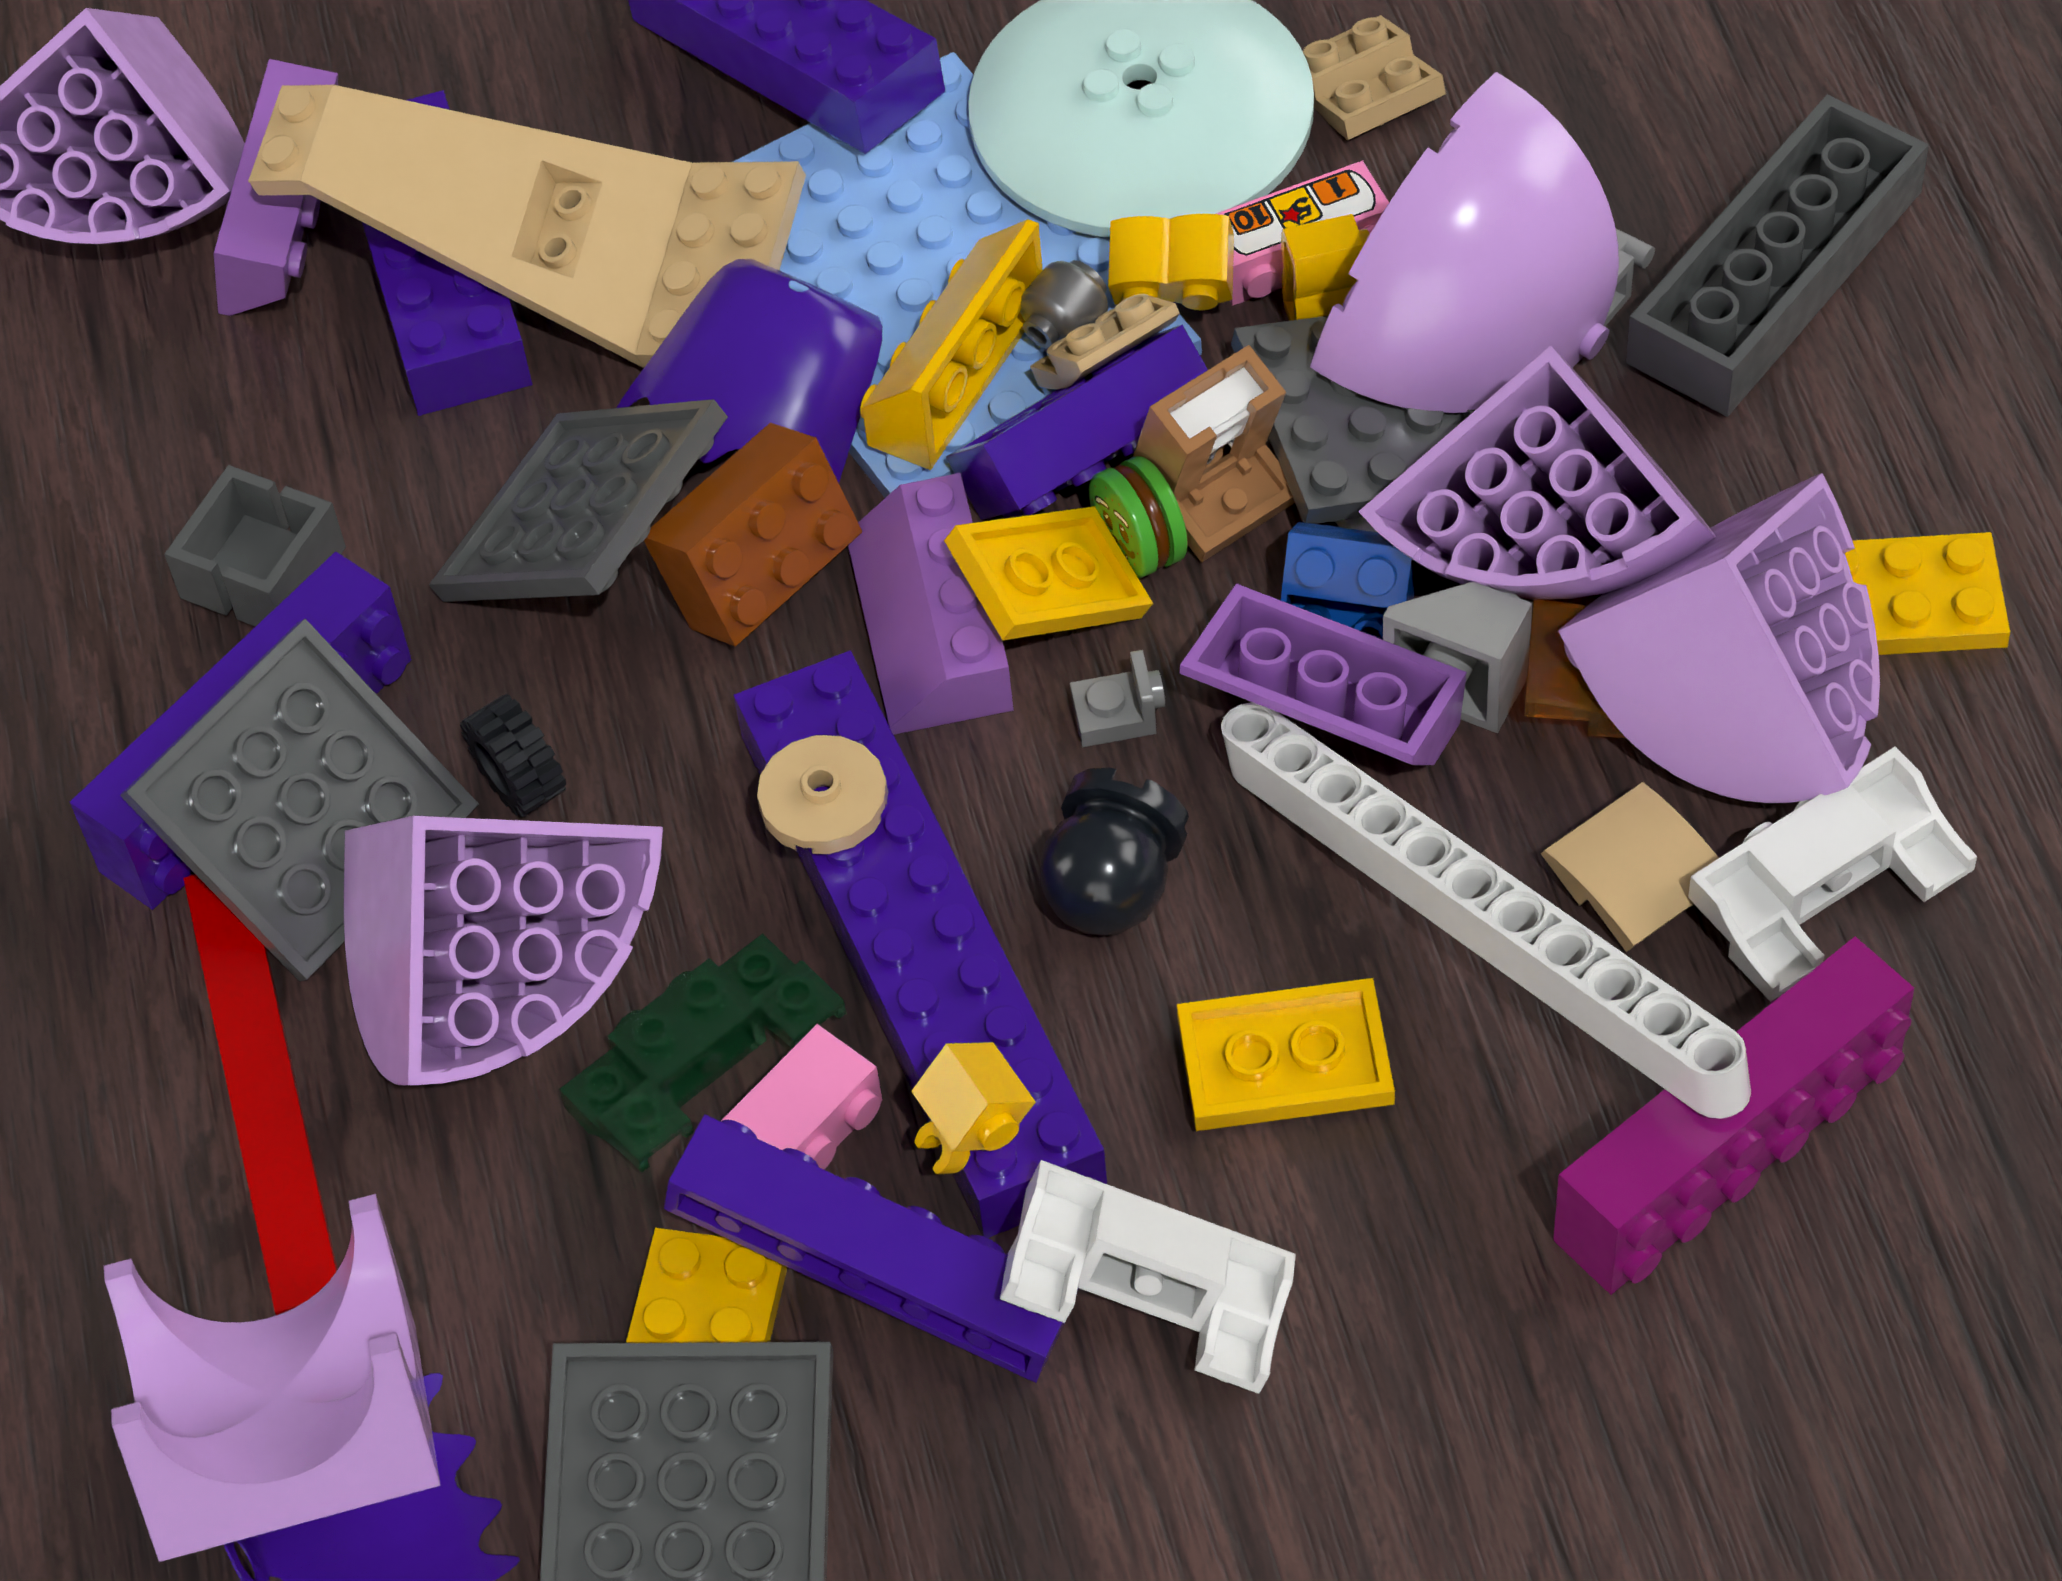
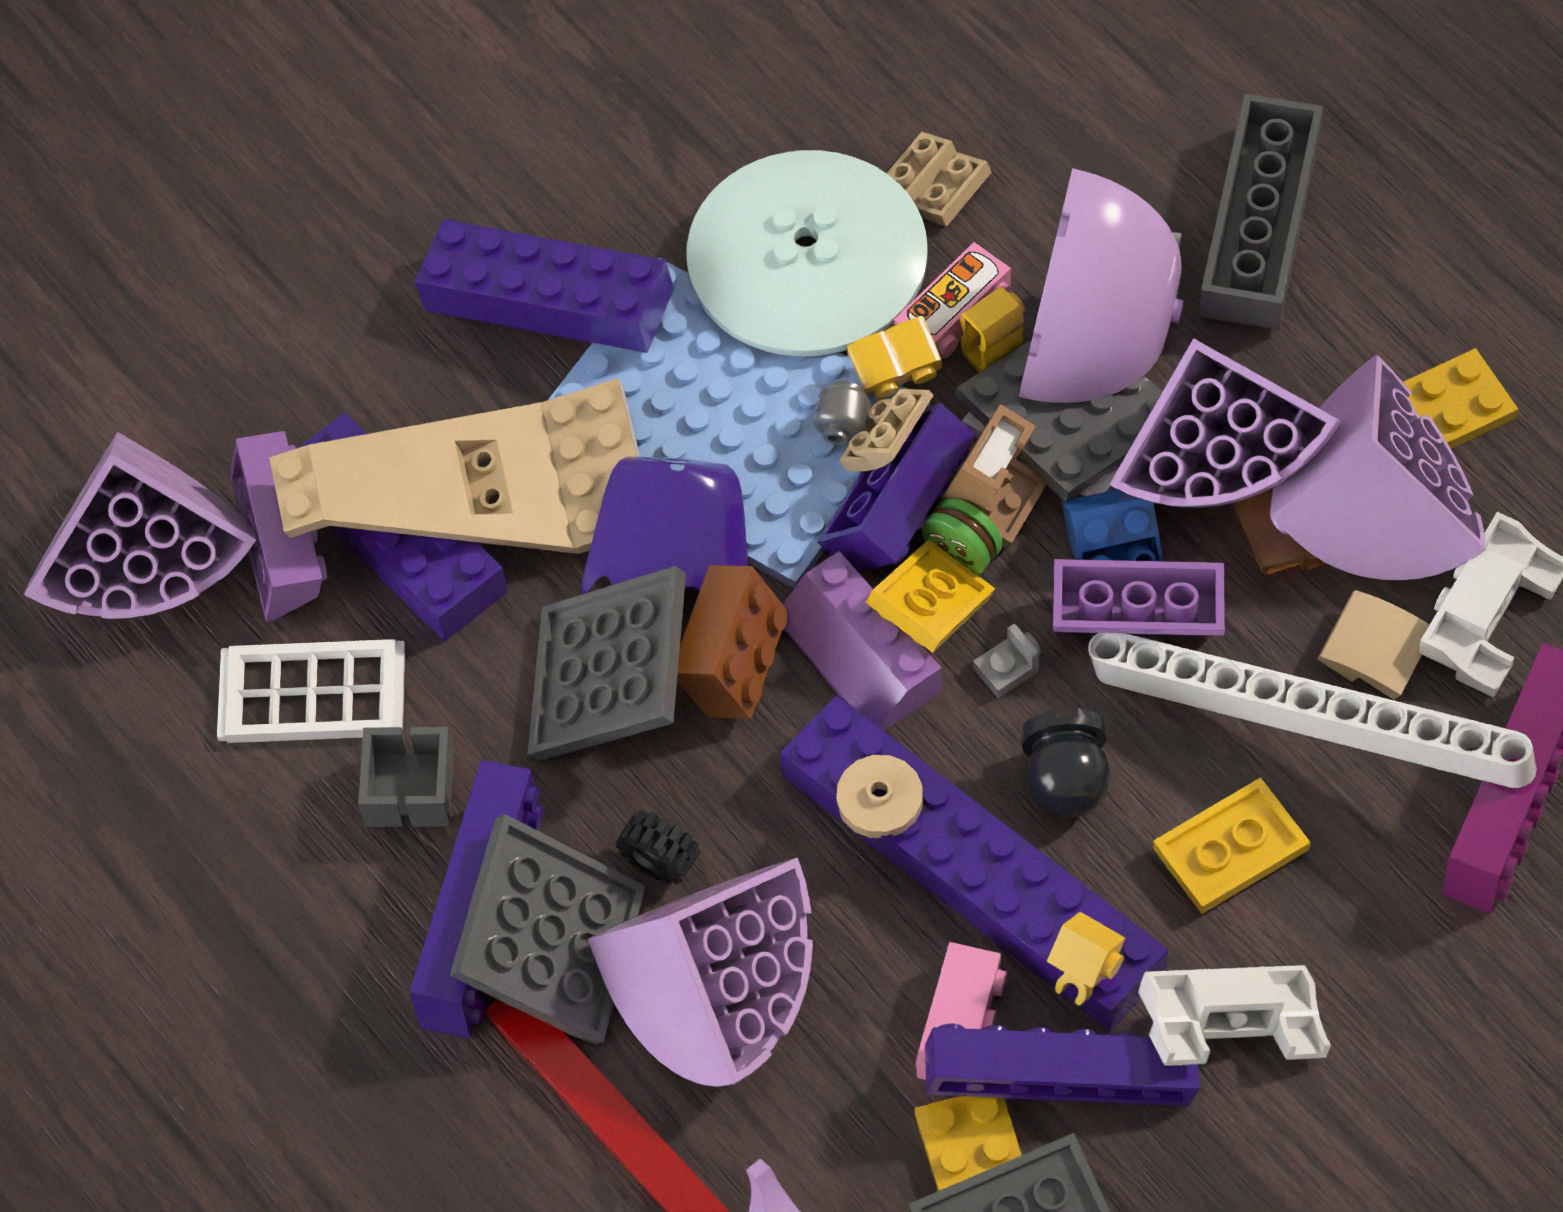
camera: 25 degrees left, 5 degrees up
(136, 356) = (232, 689): none -> white piece
(689, 1041) = (867, 982): clear green bracket -> none
(954, 349) = (788, 466): yellow slope -> none
(1474, 632) = (1214, 536): light grey slope -> none

